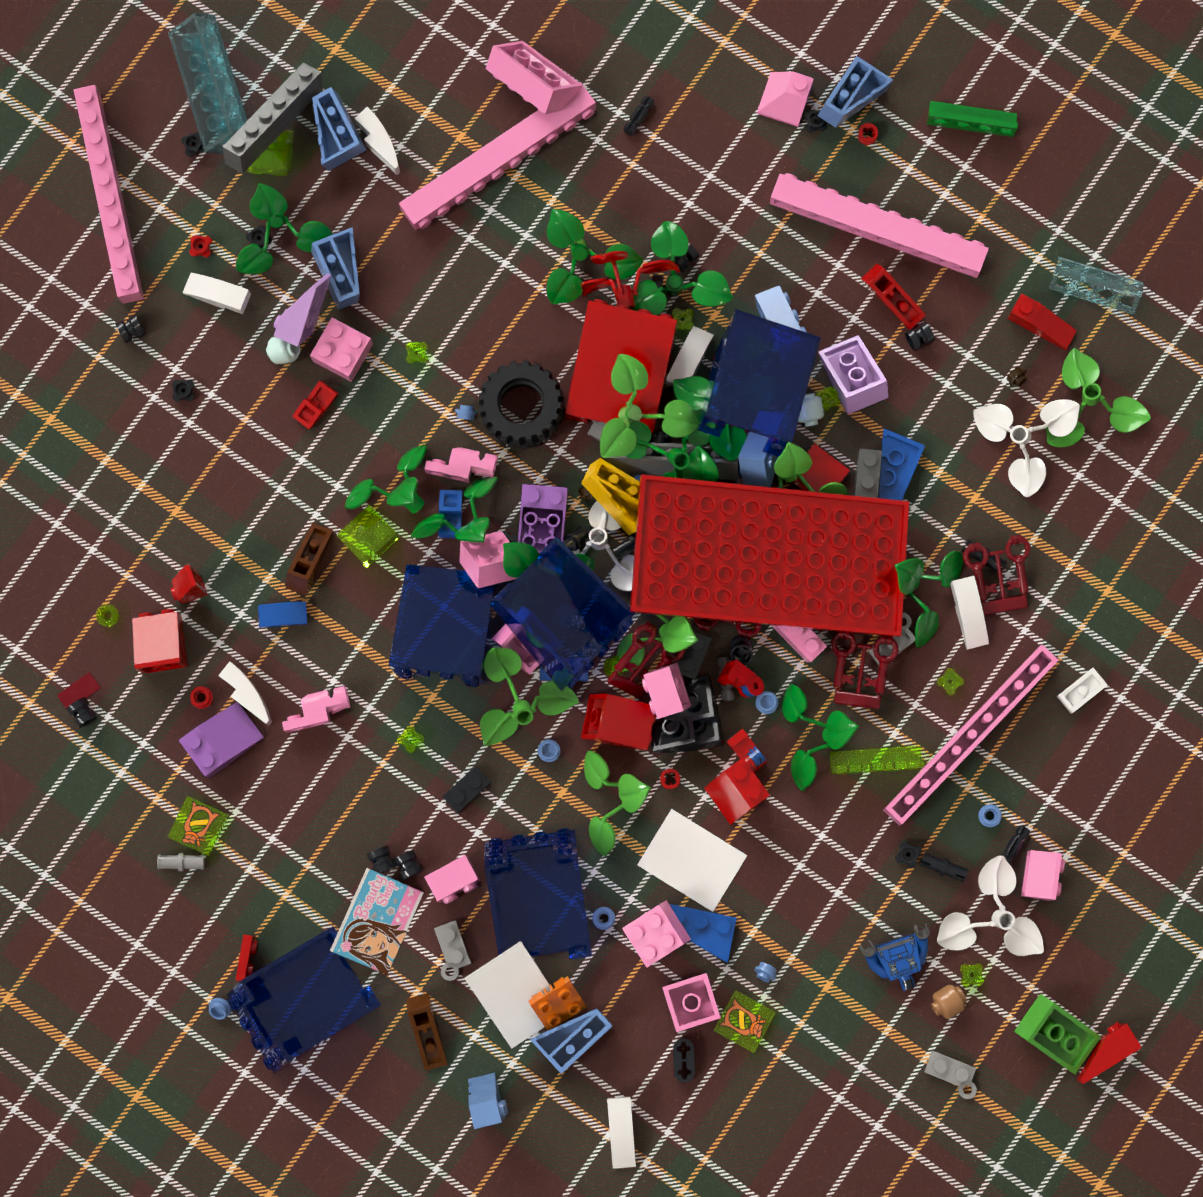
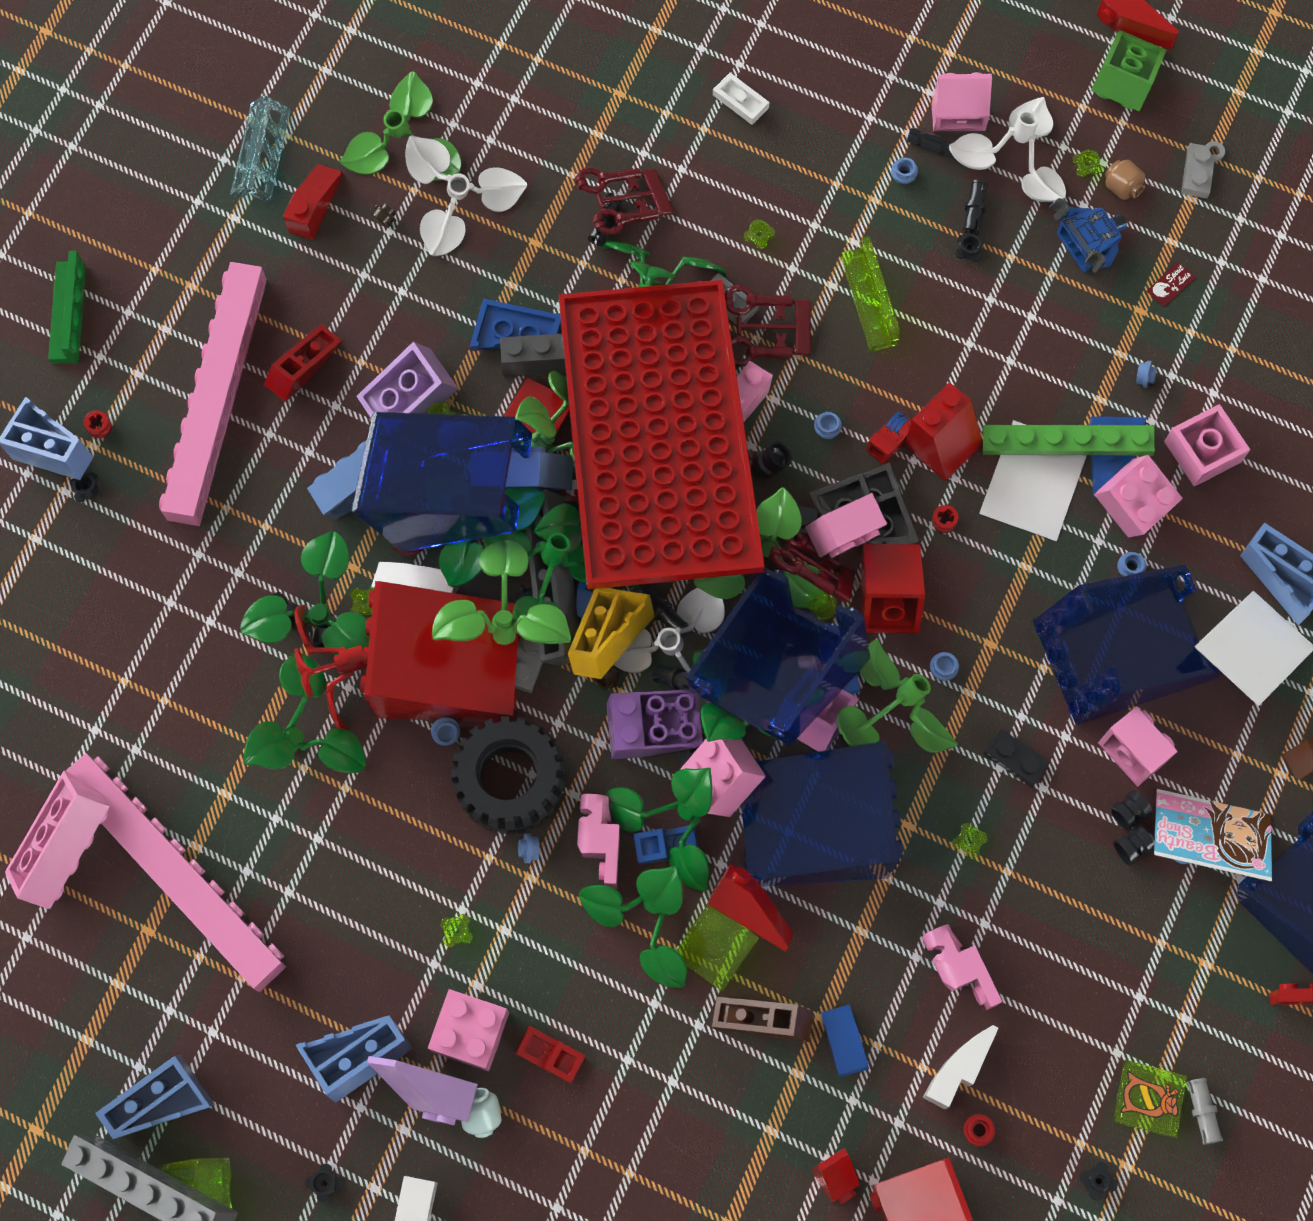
camera: 105 degrees left, 10 degrees down
(143, 771) = (1089, 1178): none -> black plate
(221, 739) = (1031, 1089): medium lavender slope -> none
(272, 205) = (286, 1163): green plant -> none
(377, 139) = (164, 1037): white slope -> none
(388, 561) = (747, 903): none -> red slope
(452, 948) = (1217, 738): light grey hinge -> none
(557, 1004) = (1245, 585): orange hinge -> none
(566, 365) = (445, 731): none -> medium blue plate
(631, 792) = (987, 535): bright green plant -> none
(638, 115) = (98, 701): black axle -> none
(677, 1057) = (1270, 443): black beam -> none
(717, 891) = (1069, 440): none -> bright green plate
(727, 694) = (809, 476): dark grey axle -> none
(742, 678) = (807, 453): red leg -> none
(744, 1021) = (1206, 386): clear neon green tile -> none
(785, 97) = (56, 525): bright pink slope -> none
(836, 734) = (850, 320): green plant -> none
(847, 1018) = (1170, 284): none -> dark red sticker
(919, 336) = (347, 323): black wheel -> none
(970, 612) = (673, 223): white slope -> none
(970, 735) = (819, 198): bright pink brick -> none

